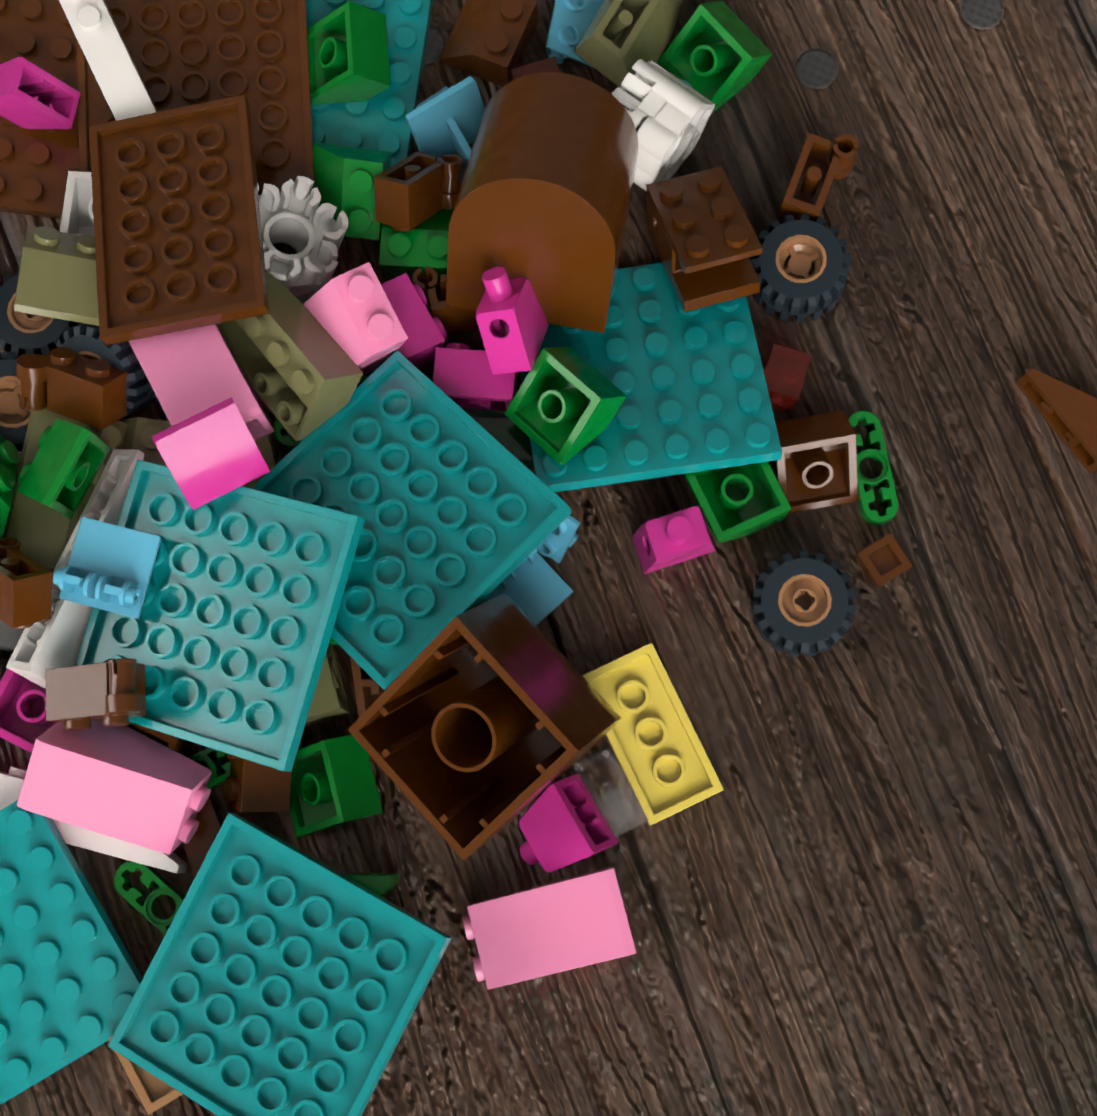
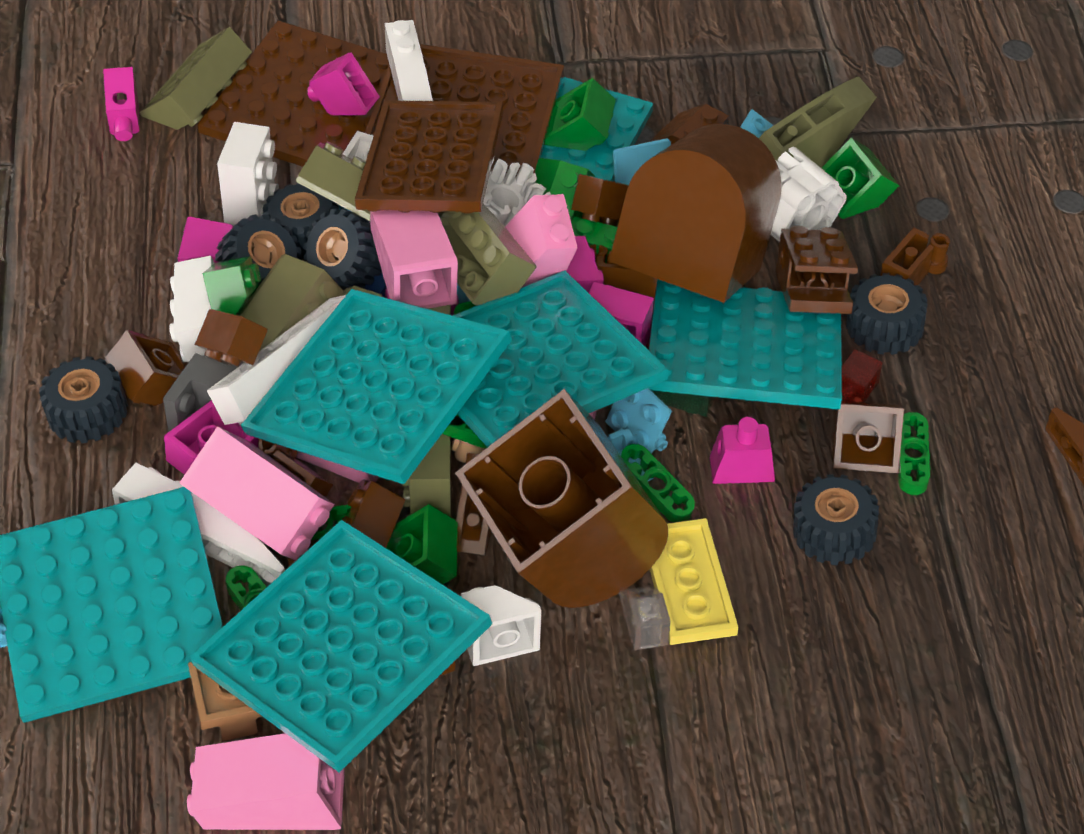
camera: 10 degrees right, 30 degrees down
(63, 467) = (294, 287): green slope -> none
(72, 386) = (317, 245): reddish brown hinge -> none
(96, 693) = (273, 410): hinge -> none
(108, 568) = (307, 341): medium azure hinge -> none
(211, 453) = (413, 274): slope -> none
(443, 875) = (513, 628): none -> white slope
(510, 322) = (655, 265): dark pink torso -> none
(549, 929) = (570, 682): bright pink slope -> none
(564, 403) = (681, 330): green slope -> none
(564, 826) = (599, 612): dark pink torso -> none
(610, 613) = (654, 468): none -> green beam
(739, 499) = (803, 436): green slope -> none
(883, 561) = (909, 511): reddish brown plate -> none

